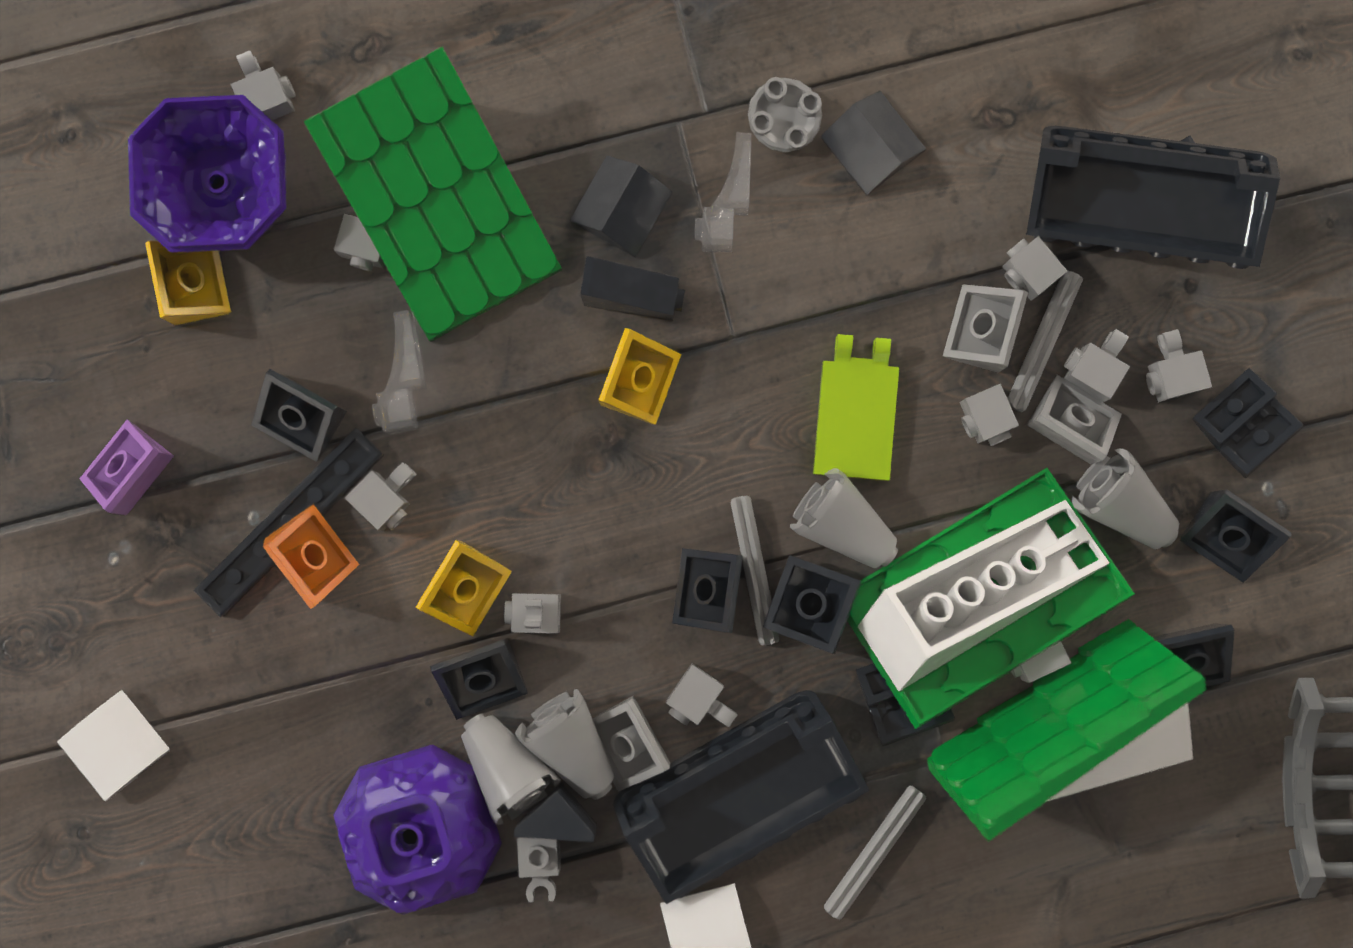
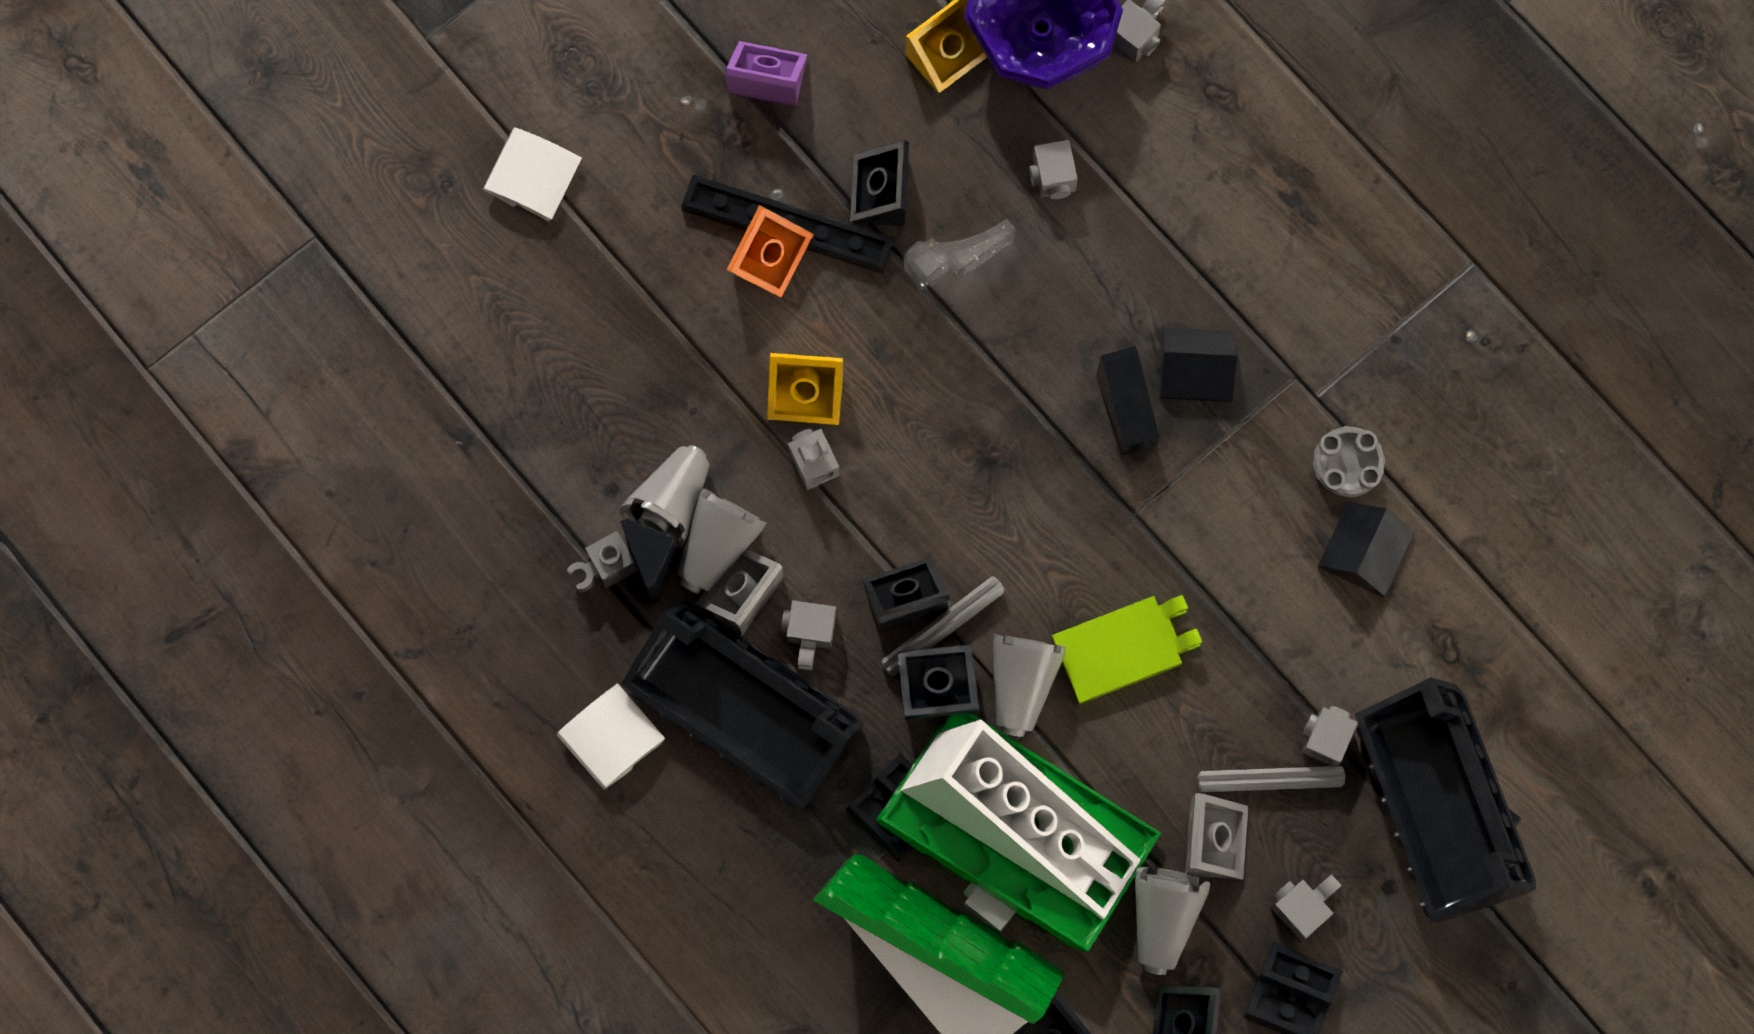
camera: 65 degrees right, 10 degrees down
(379, 498) = (845, 285): light grey brick -> none
(434, 194) = (1121, 203): green piece -> none
(438, 801) = (584, 480): dark purple rock -> none
(480, 678) = (736, 439): black slope -> none
(639, 377) = (1058, 446): yellow slope -> none
(716, 226) = (1224, 448): clear slope -> none
(874, 852) = (750, 847): light grey axle -> none
(985, 326) = (1256, 720): light grey slope -> none
(988, 416) = (1179, 759): light grey brick -> none
(1098, 369) = (1269, 834): light grey brick -> none

